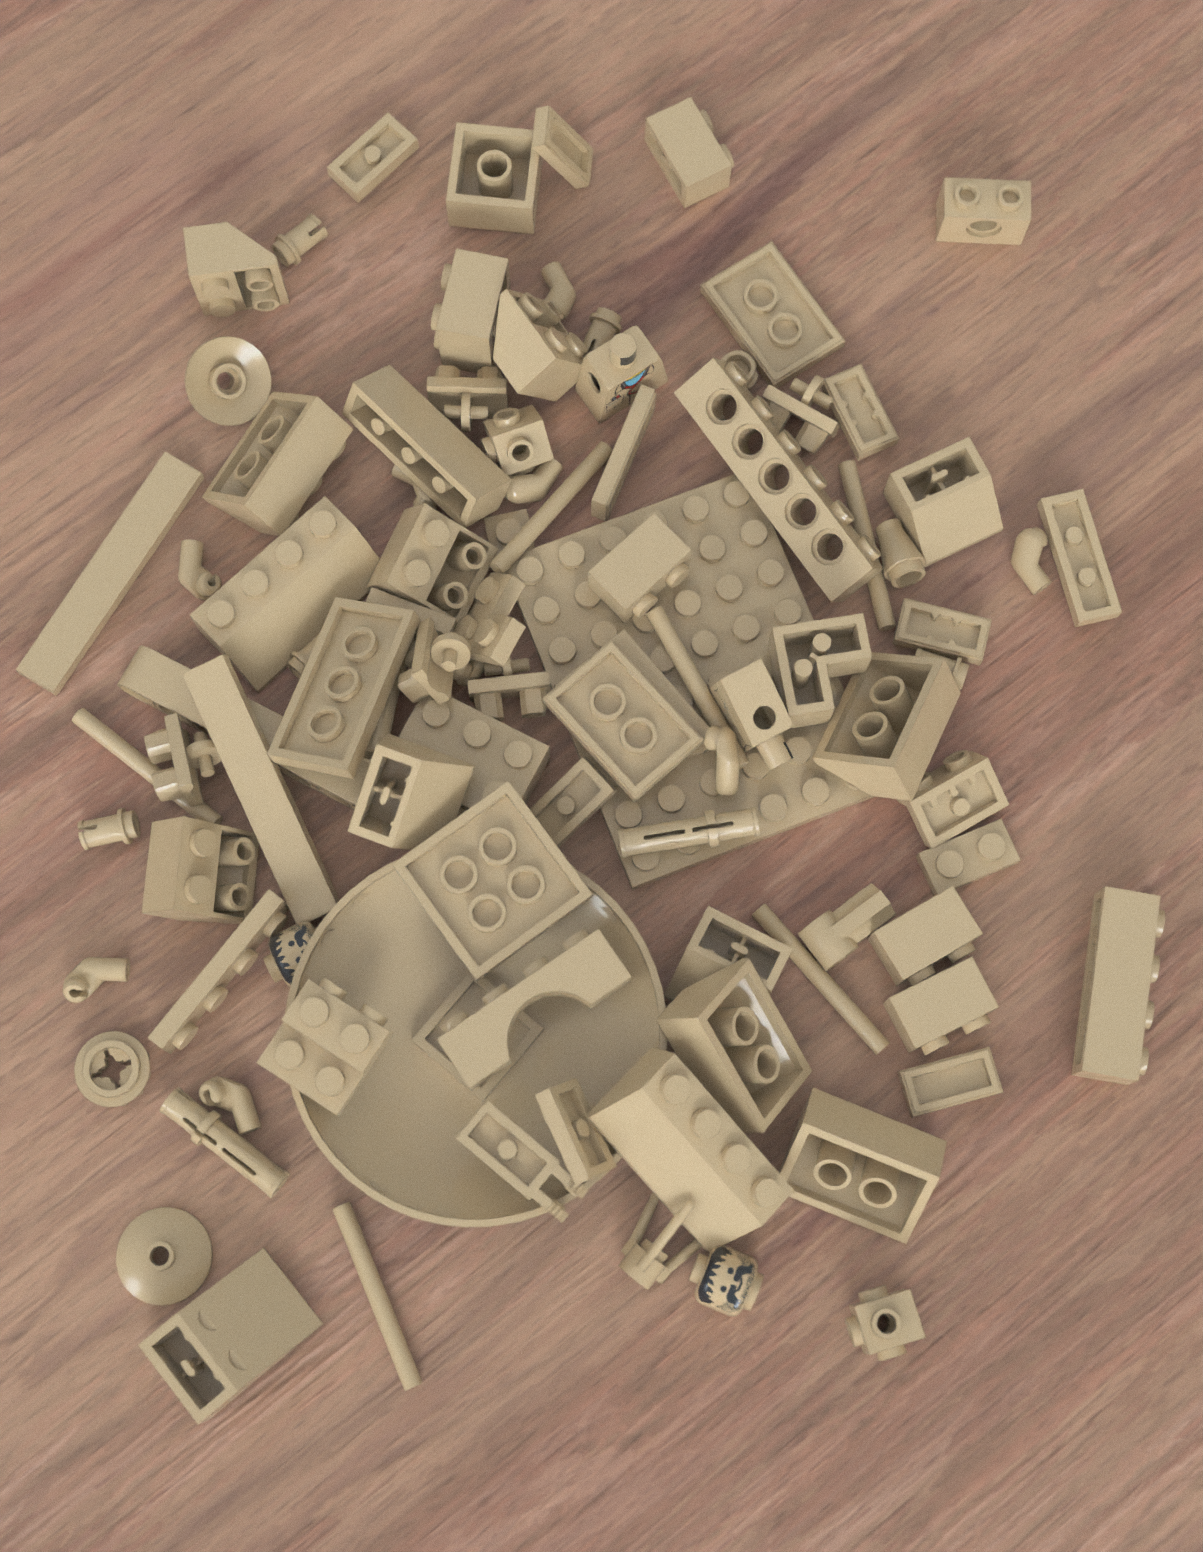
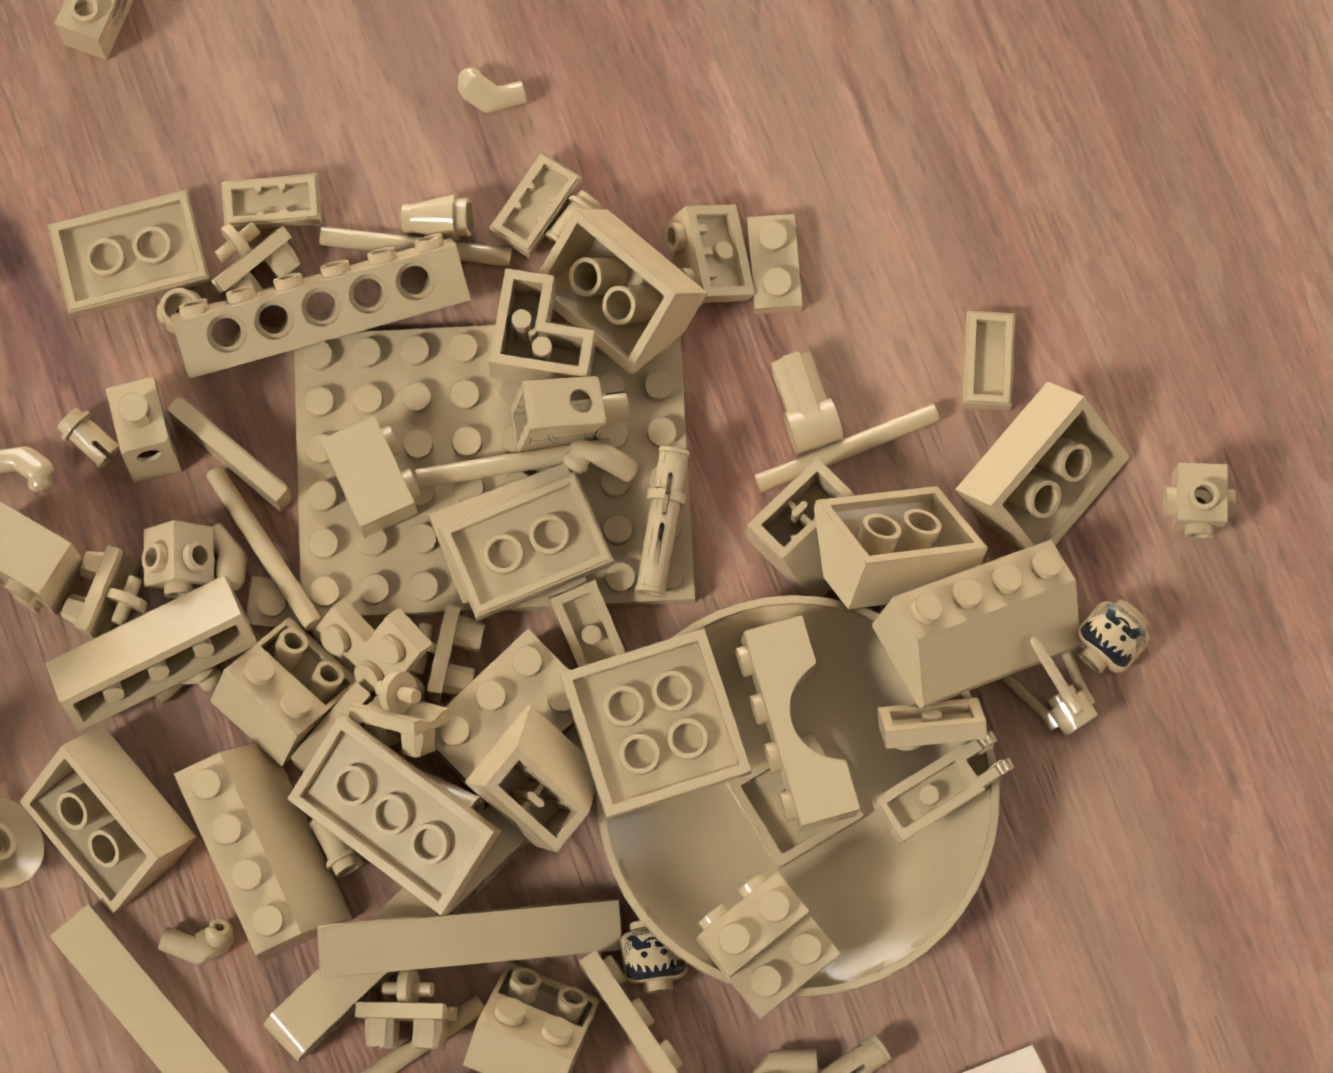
camera: 70 degrees left, 0 degrees up
(377, 1296) = (1020, 983): tan bar -> none
(535, 346) = (87, 501): tan slope -> none
(926, 936) = (842, 331): tan brick -> none
(940, 1006) = (914, 341): tan brick -> none
(945, 501) = (403, 151): tan slope -> none
(1079, 558) = (505, 44): tan plate -> none
(1117, 986) = (948, 168): tan brick -> none

